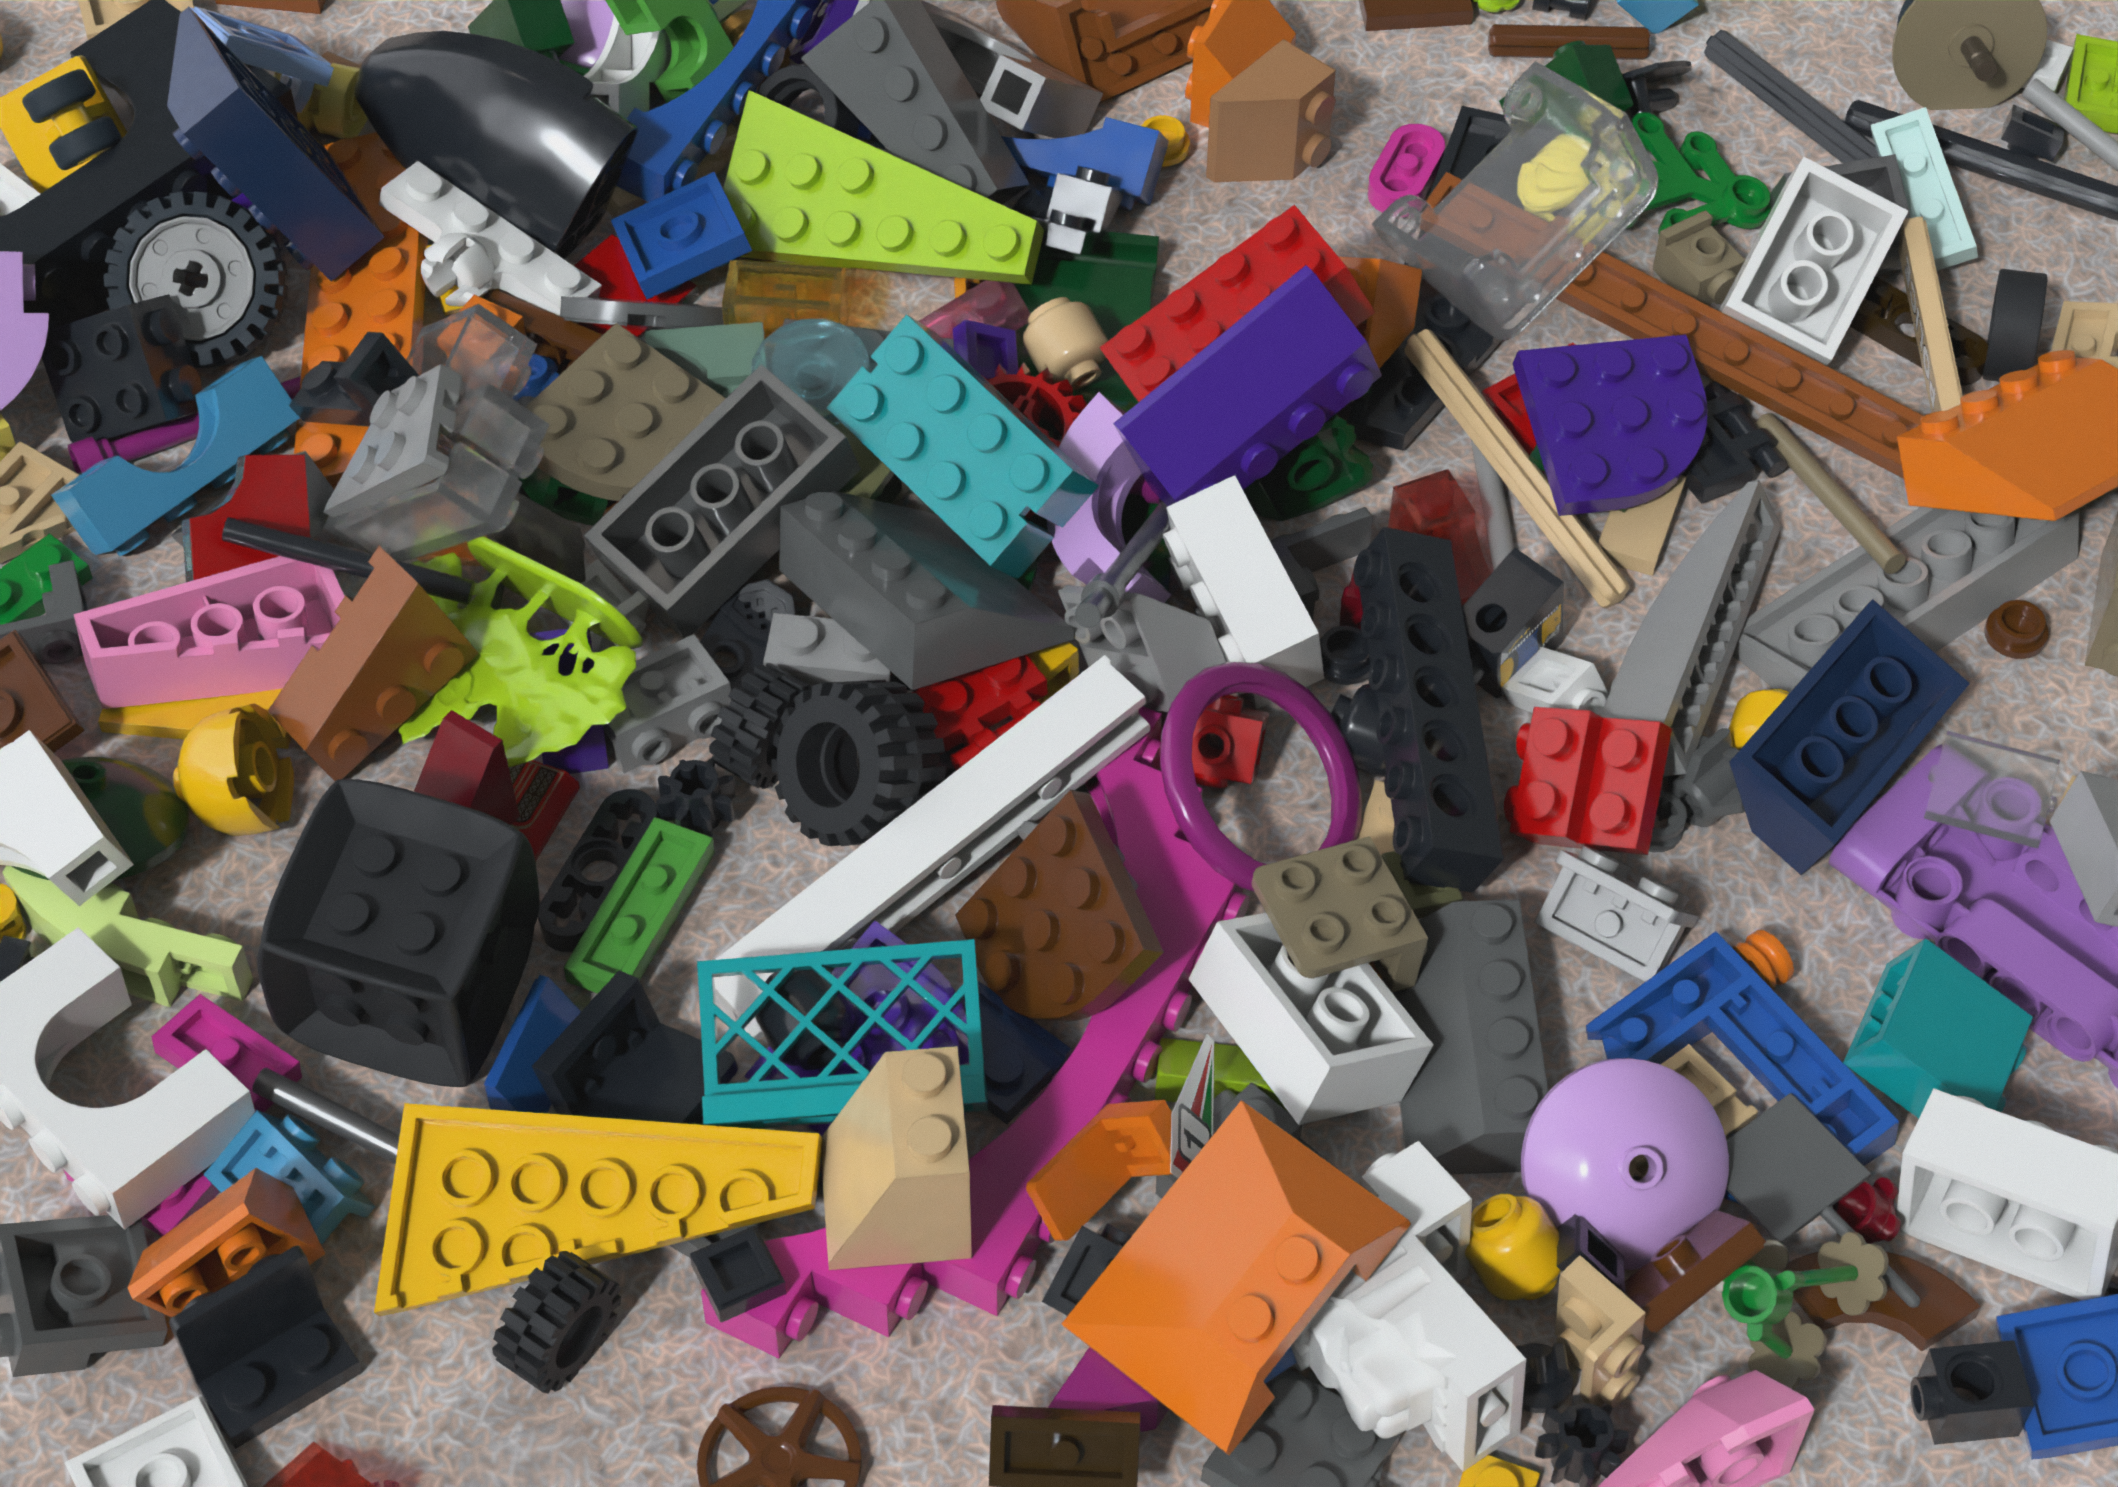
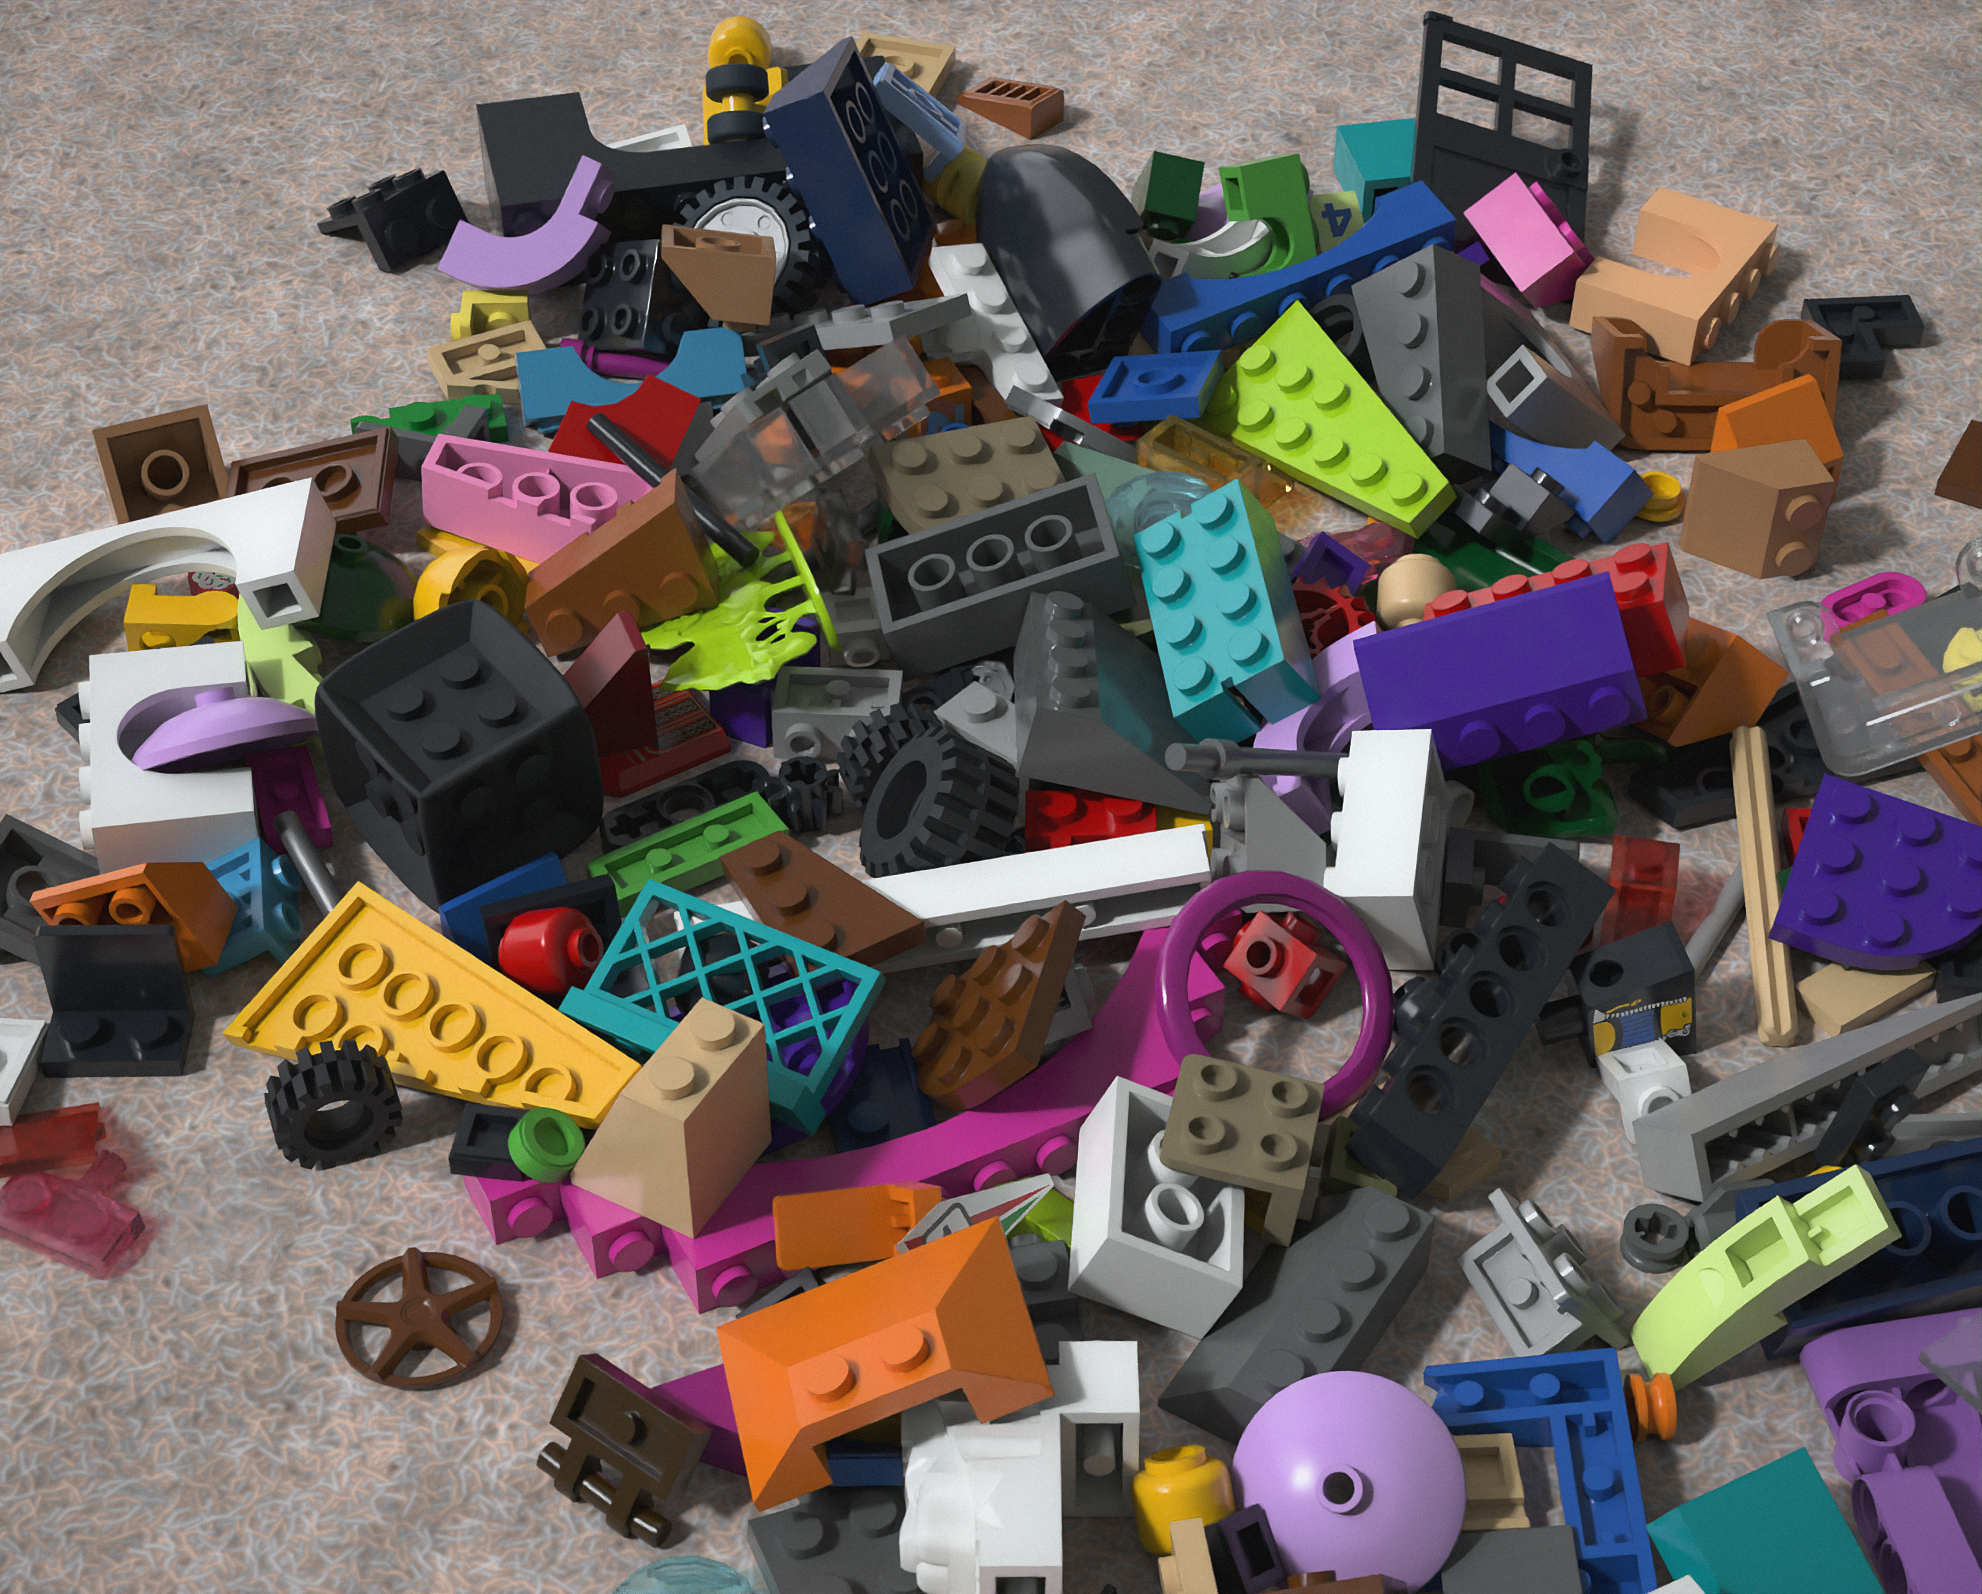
camera: 35 degrees right, 10 degrees down
(144, 1031) = (223, 731): none -> lavender dish
(229, 306) = (724, 273): none -> medium nougat slope
(390, 303) = (865, 327): none -> light grey wing
(632, 1072) = (550, 951): none -> red head
(793, 1250) = (546, 1144): none -> bright green tile
(831, 903) = (818, 903): none -> reddish brown wing
(1588, 780) = (1592, 1154): red plate -> none
(1765, 646) = (1871, 1111): none -> black hinge
(1797, 820) = (1756, 1270): none -> yellowish green slope

